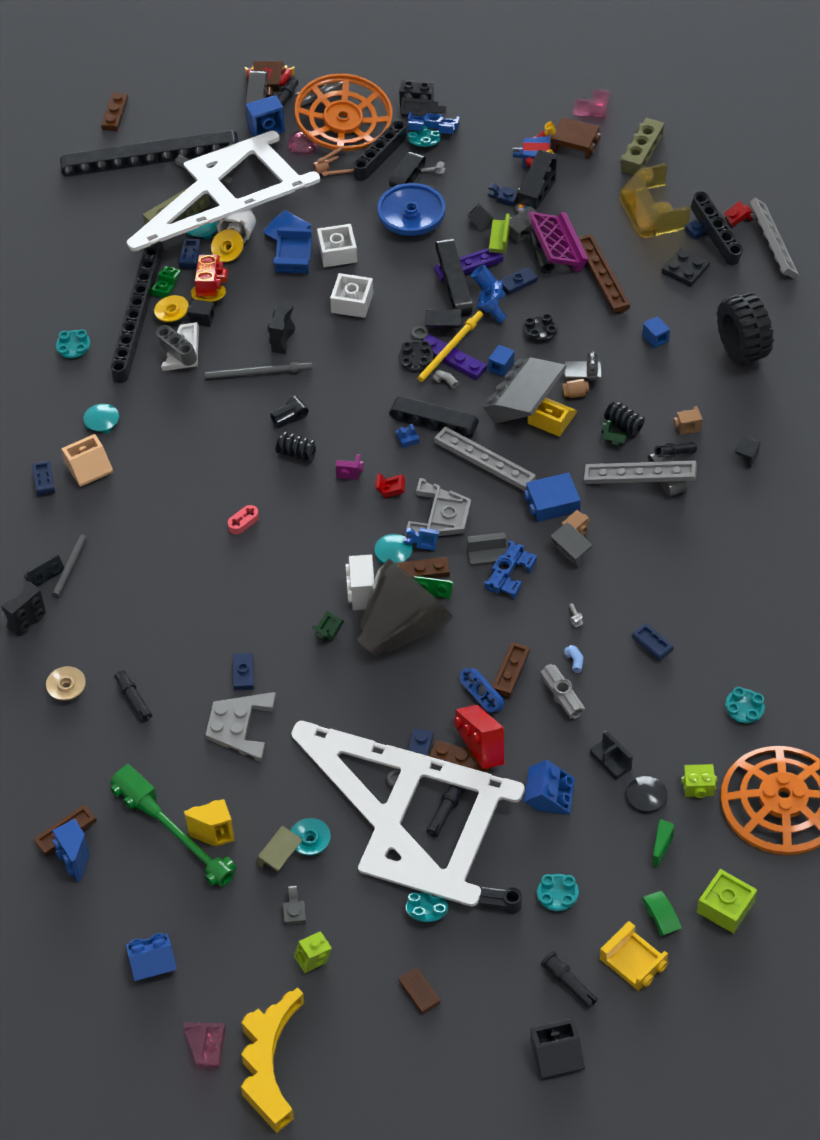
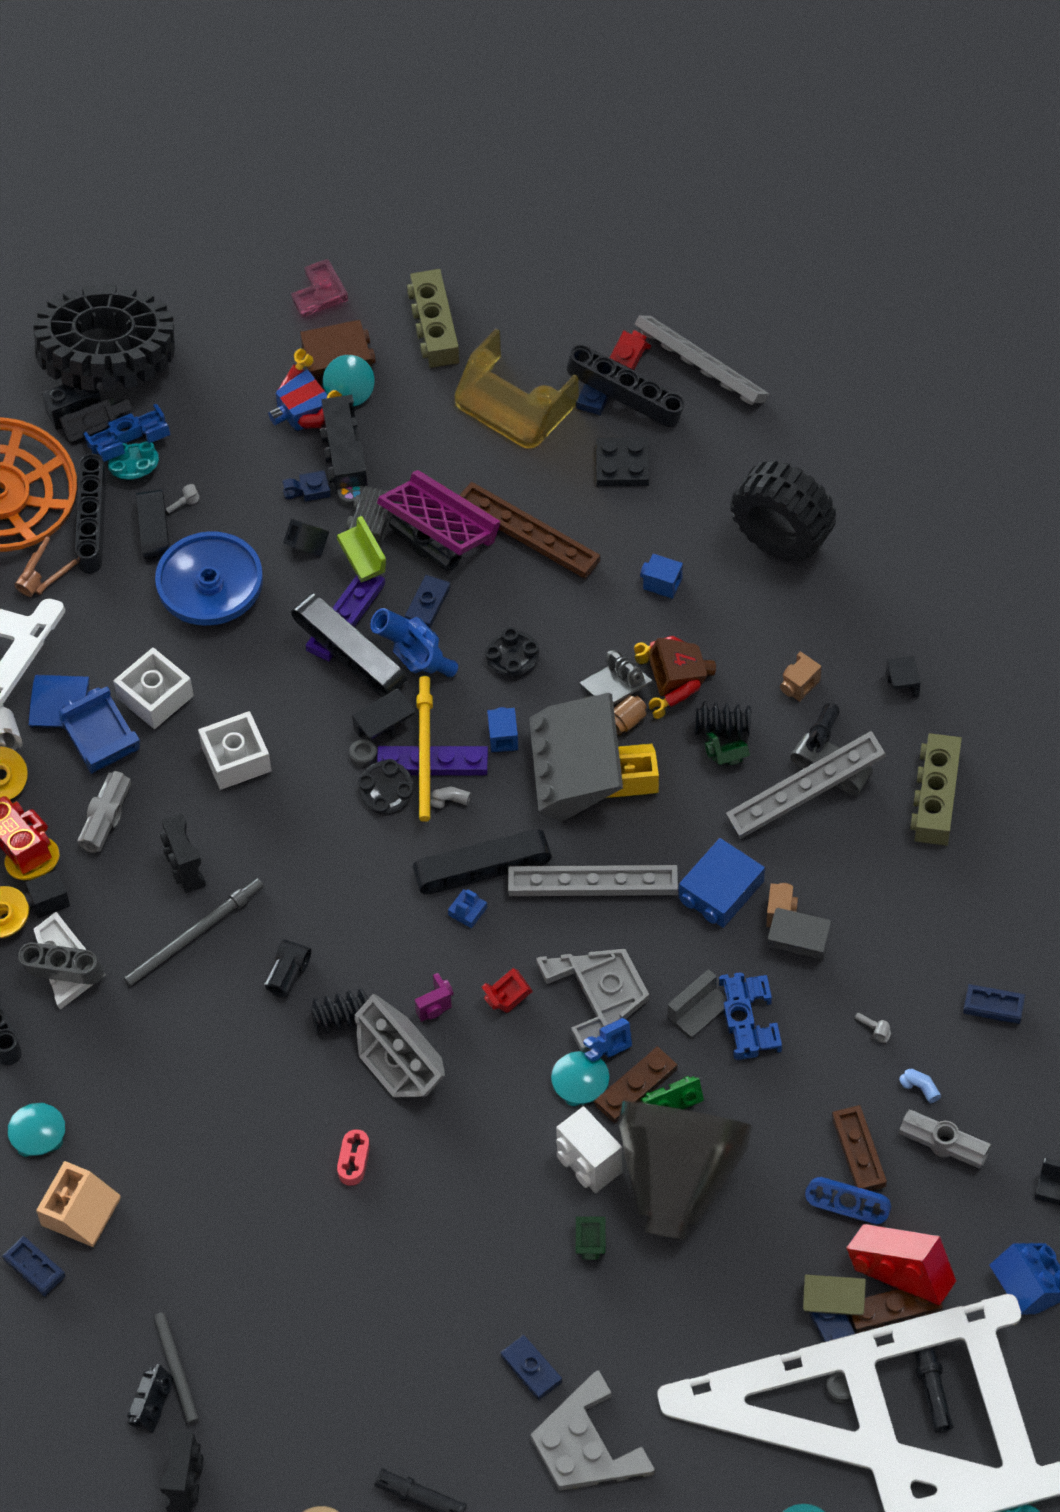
camera: 35 degrees left, 5 degrees up
(263, 290) = (104, 812): none -> light grey piece
(308, 478) = (396, 1050): none -> light grey wedge
(430, 730) = (834, 1295): none -> olive panel
(474, 81) = (74, 357): none -> black tyre
(569, 152) = (349, 377): none -> teal dish
(620, 381) = (676, 669): none -> reddish brown torso
(716, 517) = (945, 752): none -> olive brick

